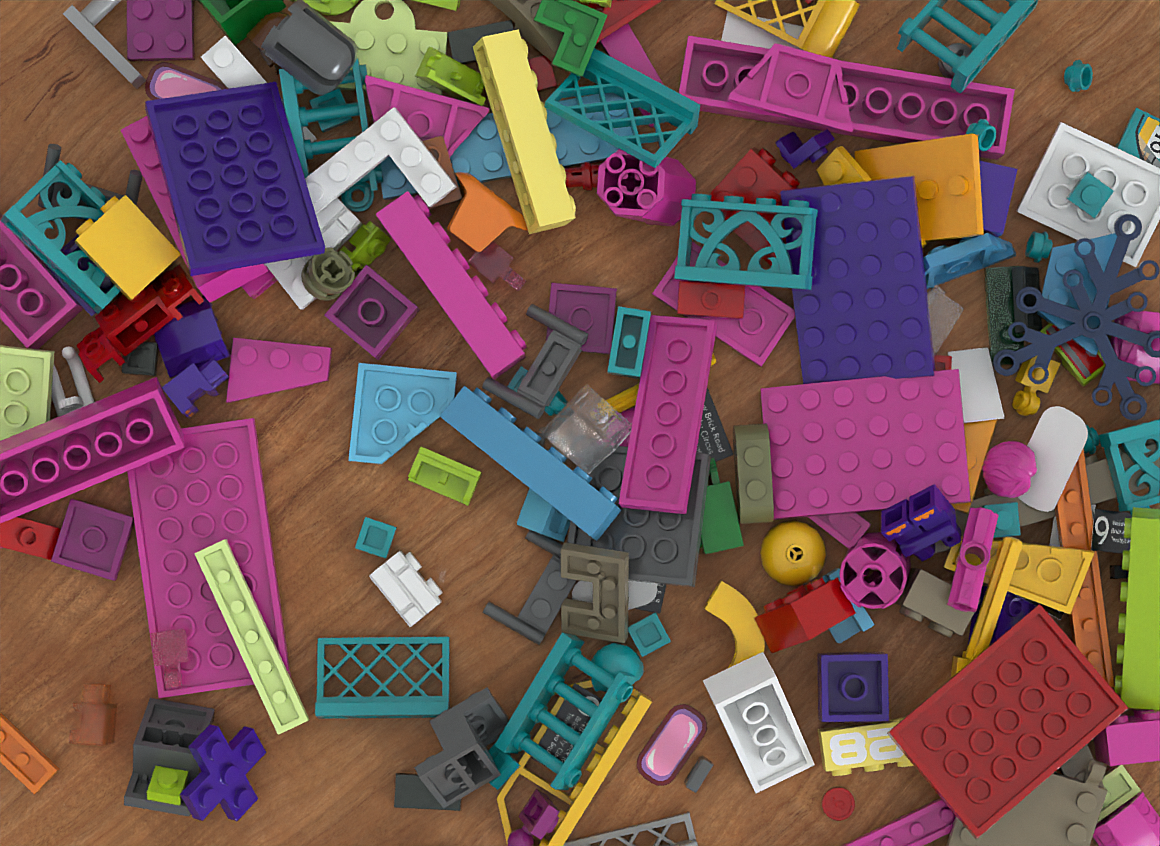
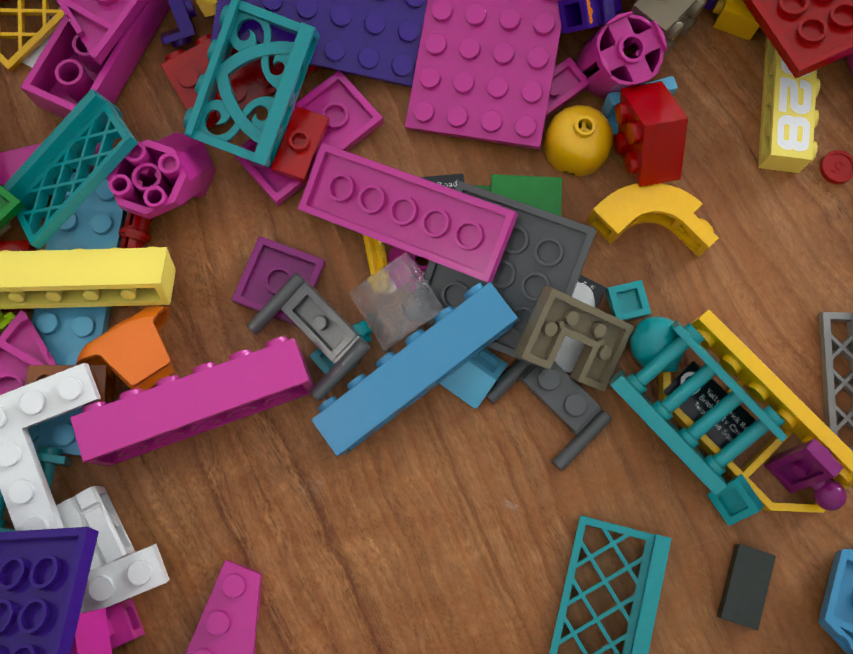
camera: 80 degrees left, 10 degrees down
(328, 274) = (134, 537): olive wheel -> none
(362, 205) = (61, 475): teal plate -> none
(369, 244) = (126, 484): lime hinge -> none
(372, 312) = (198, 501): magenta brick -> none
(376, 537) = (450, 567): teal plate -> none
(395, 408) = (314, 505): medium azure plate -> none
(406, 587) = (517, 547): white brick -> none
(444, 476) = (403, 470): lime hinge -> none
(465, 758) = (707, 530): dark grey bracket -> none
(494, 263) = (192, 352): clear pink plate -> none
(629, 342) = (318, 235): teal brick -> none
(671, 744) = (745, 313): sticker -> none
(698, 773) = (786, 290): dark grey tile -> none
(753, 473) = (488, 149): olive brick -> none
(759, 722) = (744, 209): white slope -> none
(853, 687) = (730, 114): dark purple brick -> none

